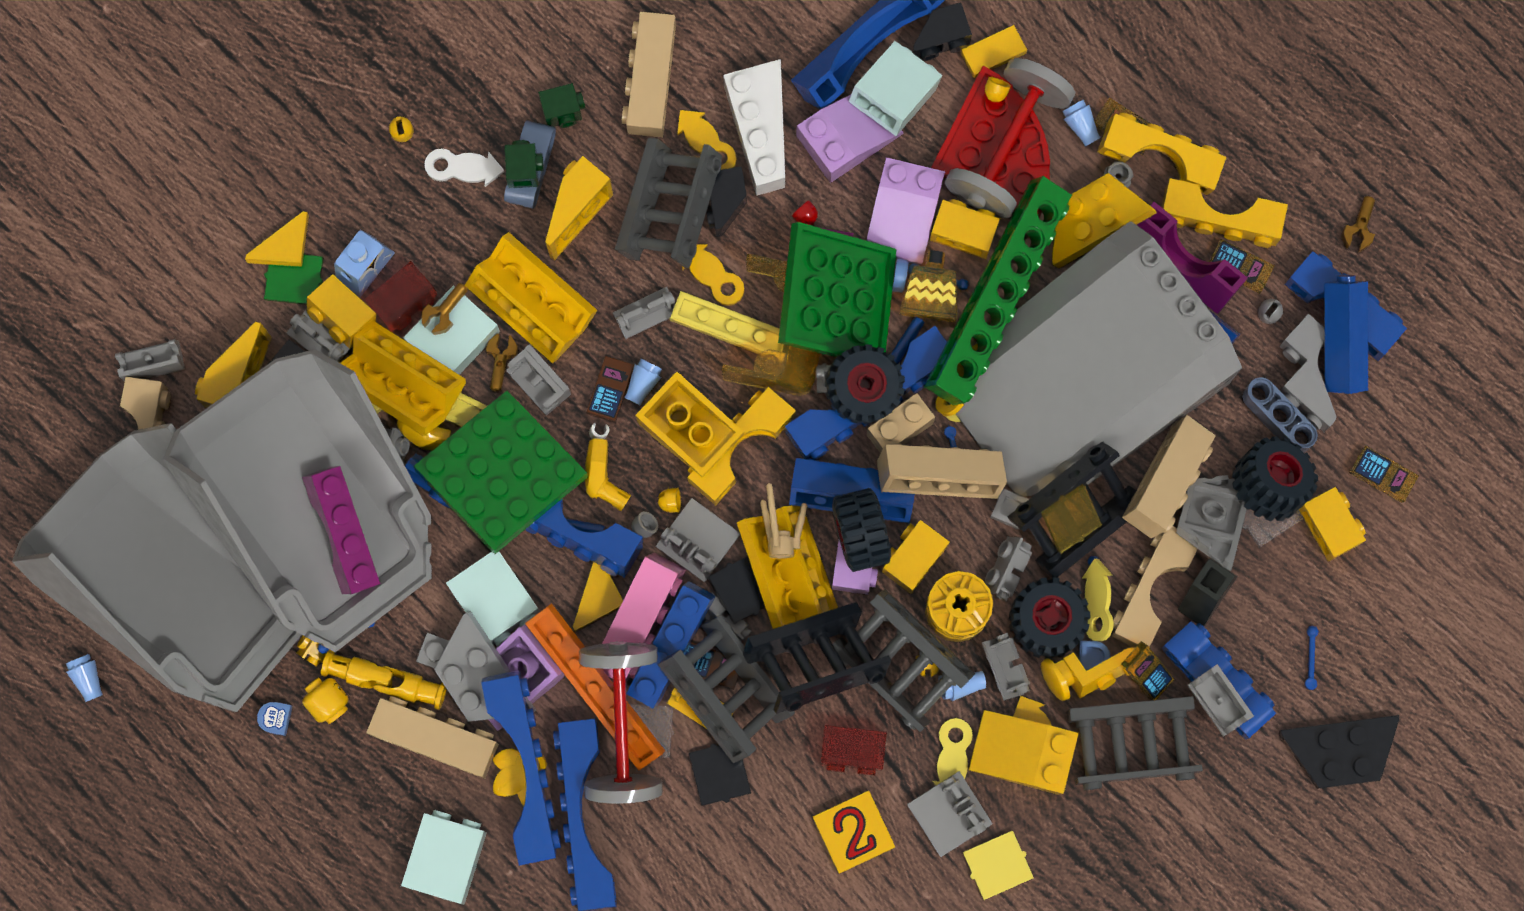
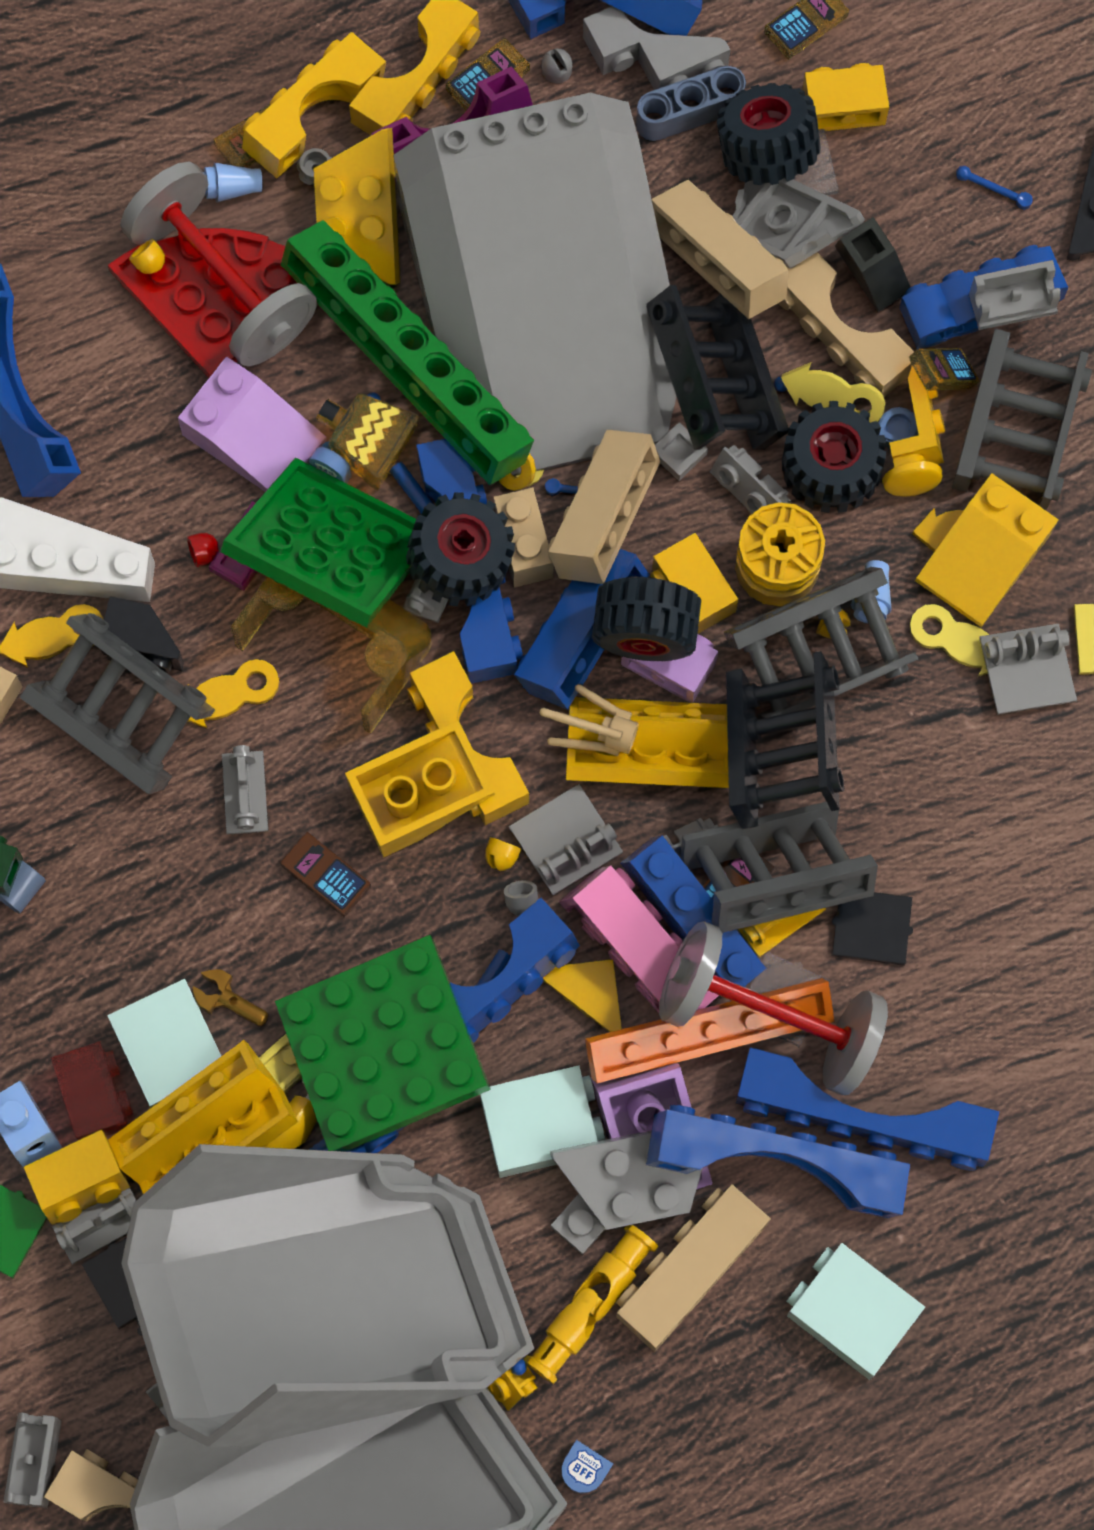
camera: 70 degrees left, 5 degrees down
(234, 365) = (107, 1353): yellow slope -> none
(325, 700) = (589, 1390): yellow head -> none
(351, 555) = (339, 1264): magenta arch -> none
(443, 310) = (136, 1036): pearl gold bar -> none
(512, 777) = (779, 1183): yellow plate -> none
(531, 298) = (163, 927): yellow slope -> none
(538, 380) = (276, 958): light grey hinge -> none
(579, 199) = (53, 802): yellow slope -> none
(596, 468) = (419, 922): yellow arm -> none
(642, 381) = (333, 828): light blue cone -> none
(725, 324) = (306, 695): light yellow tile -> none
(737, 590) = (649, 811): black piece -> none
(841, 137) = (120, 459): lavender slope -> none
(853, 749) = (905, 750): clear red brick -> none
(853, 832) = (1007, 791): yellow tile -> none
(895, 88) = (91, 376): light aqua brick -> none
(943, 31) = (42, 294): black slope -> none
(964, 228) = (306, 365): yellow brick -> none
(994, 50) = (93, 248): yellow tile -> none
(1010, 679) = (892, 532): light grey hinge -> none
(1071, 518) = (728, 374): clear yellow piece -> none

